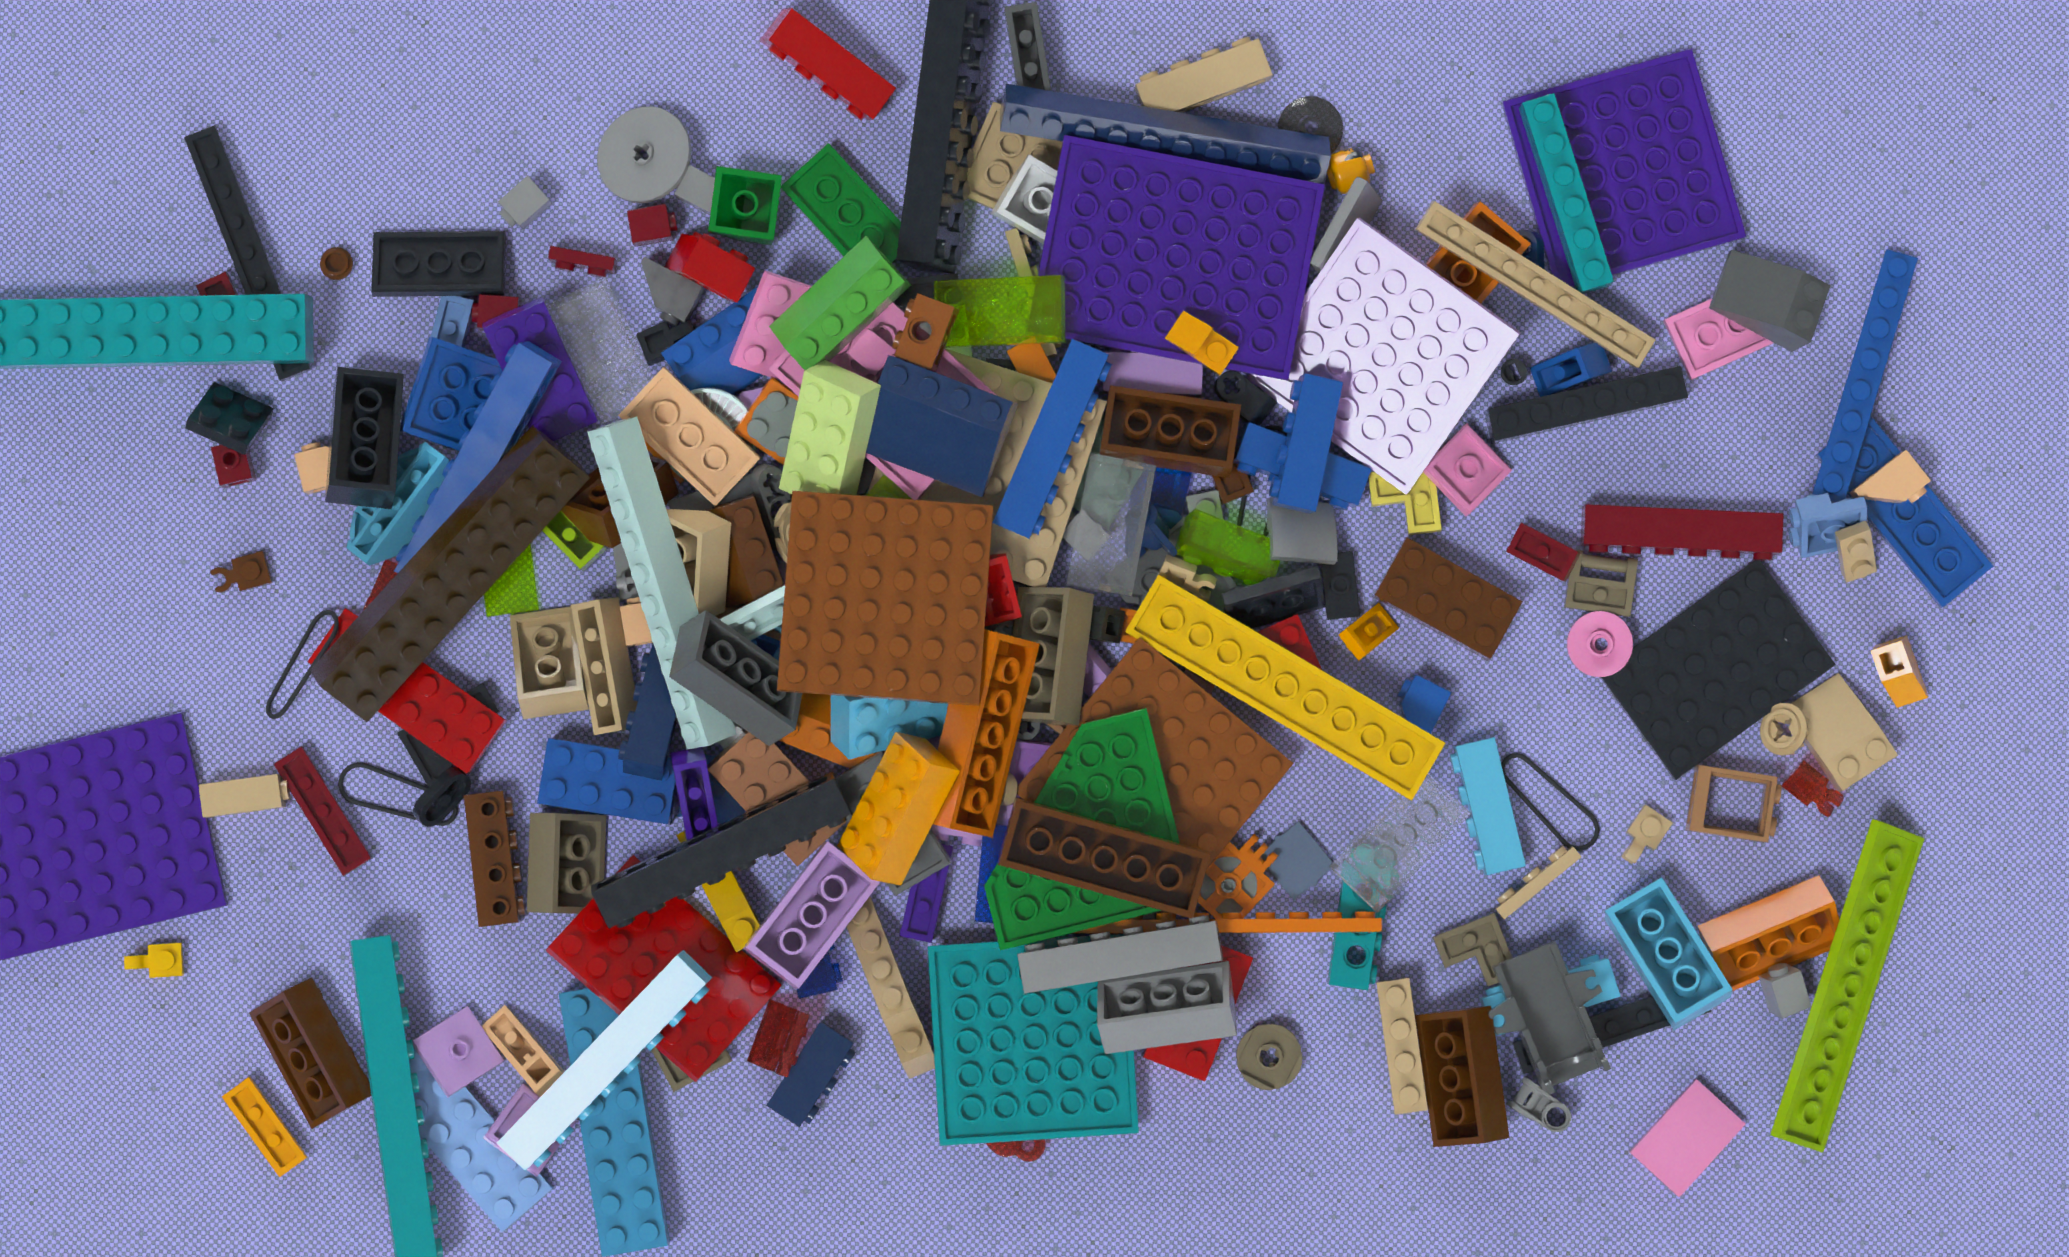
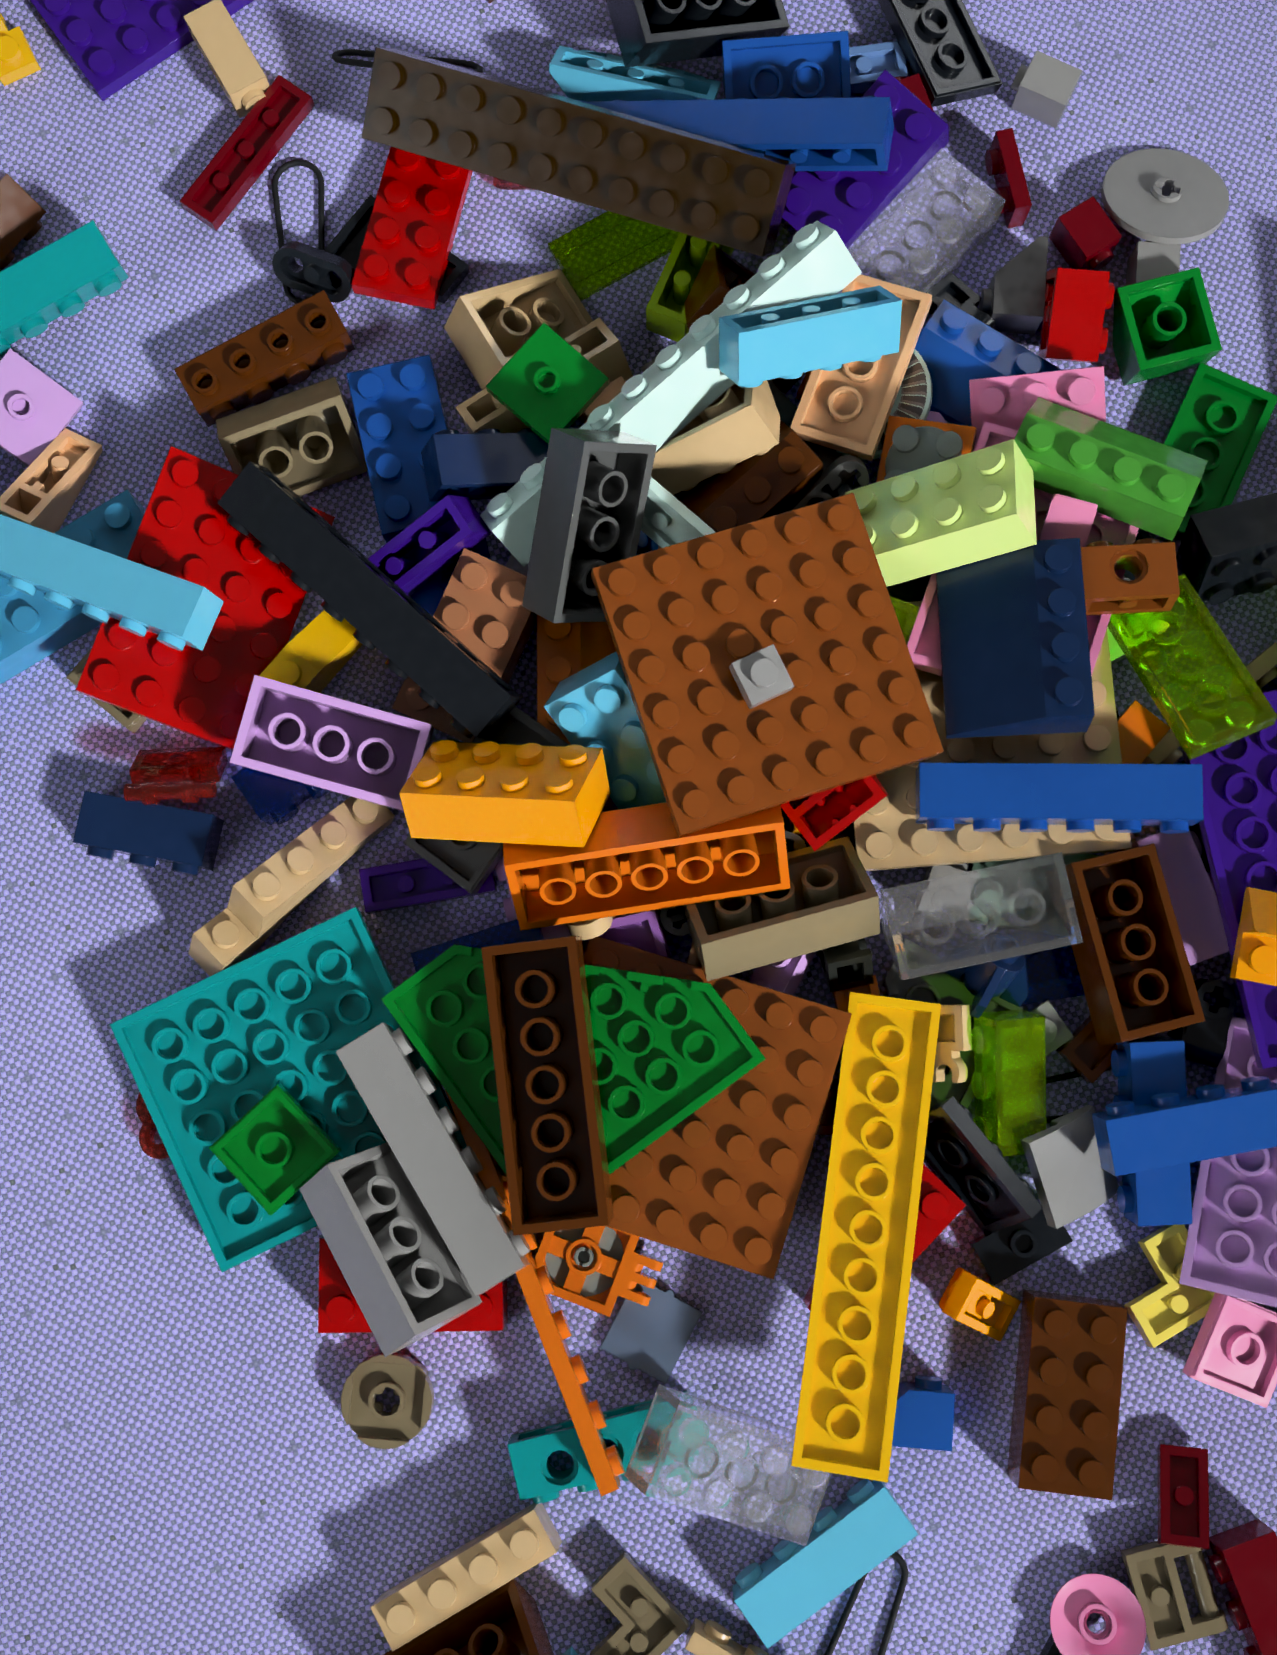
camera: 75 degrees right, 5 degrees down
(612, 663) = (547, 383): none -> green plate
(667, 471) = (809, 336): none -> medium azure brick
(897, 607) = (761, 676): none -> light grey plate
(1071, 1062) = (275, 1149): none -> green plate

